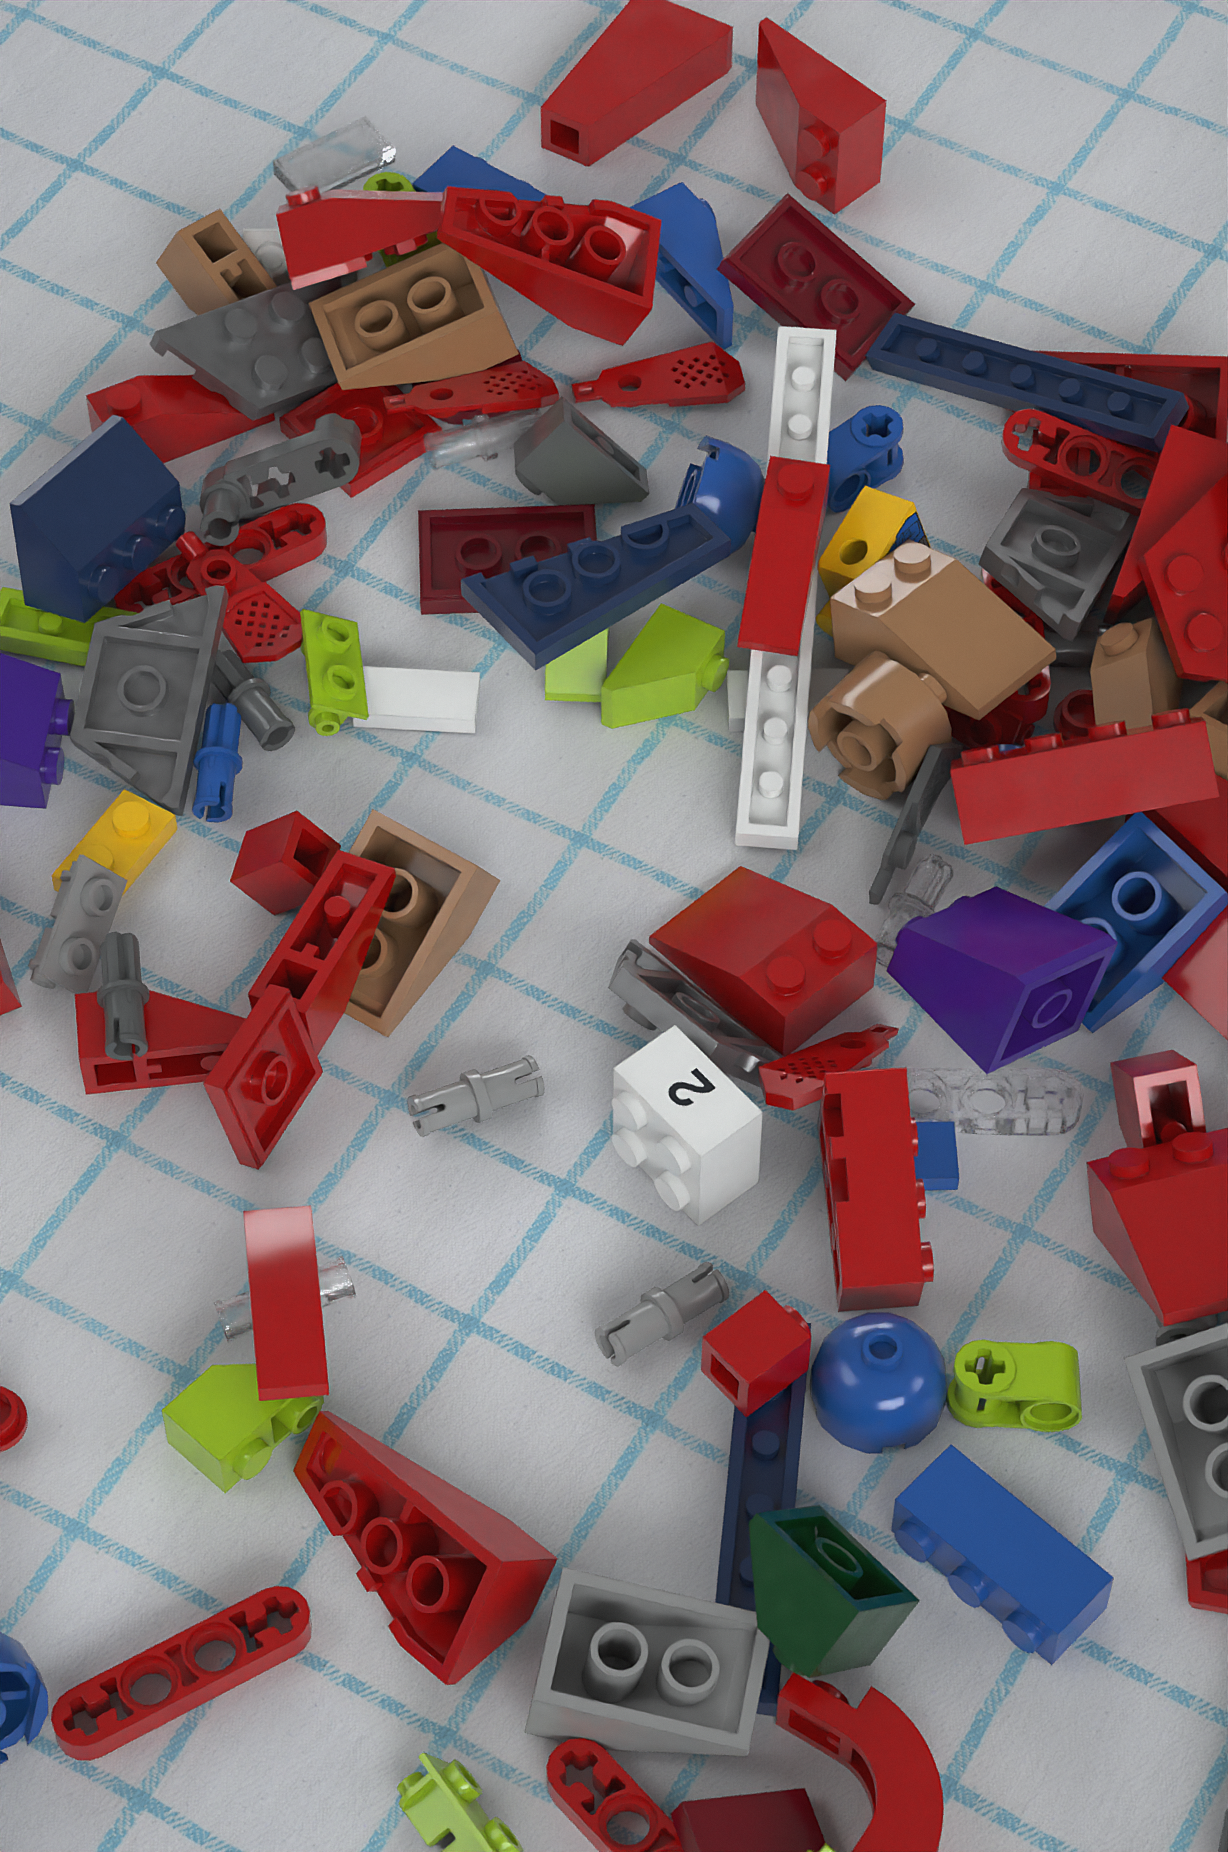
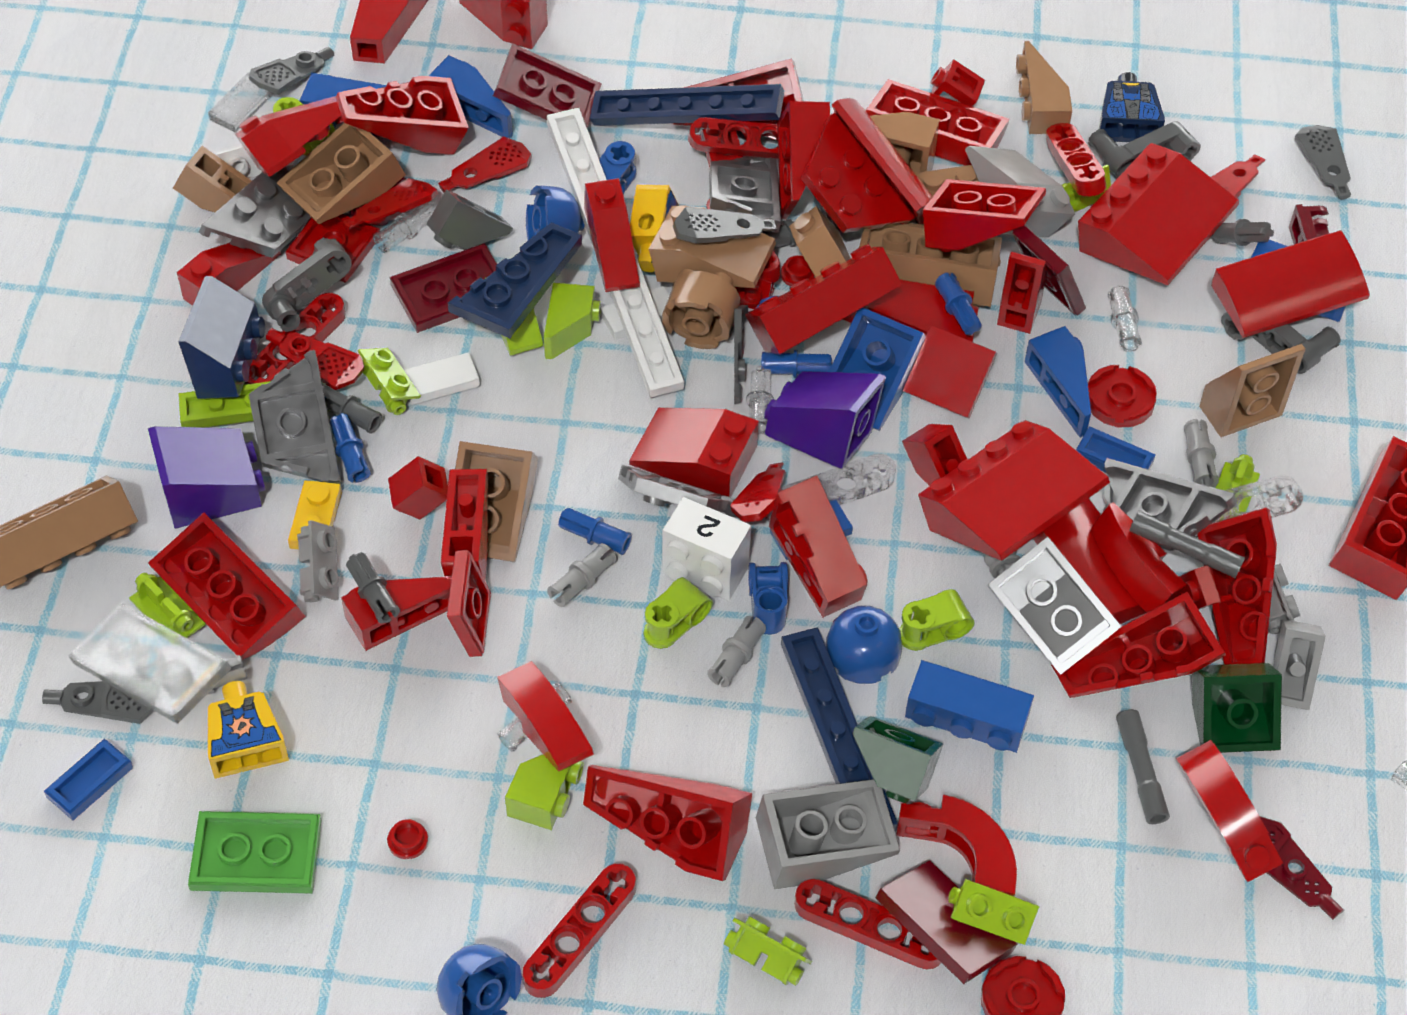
camera: 25 degrees left, 0 degrees up
(415, 134) = (283, 74): none -> dark grey piece
(535, 1032) = (595, 530): none -> blue axle
(594, 1208) = (675, 613): none -> lime piece
(756, 1352) = (802, 650): red brick -> none
(764, 1233) = (769, 591): none -> blue piece
(953, 594) = (711, 225): none -> piece
(1001, 869) = (795, 363): none -> blue axle

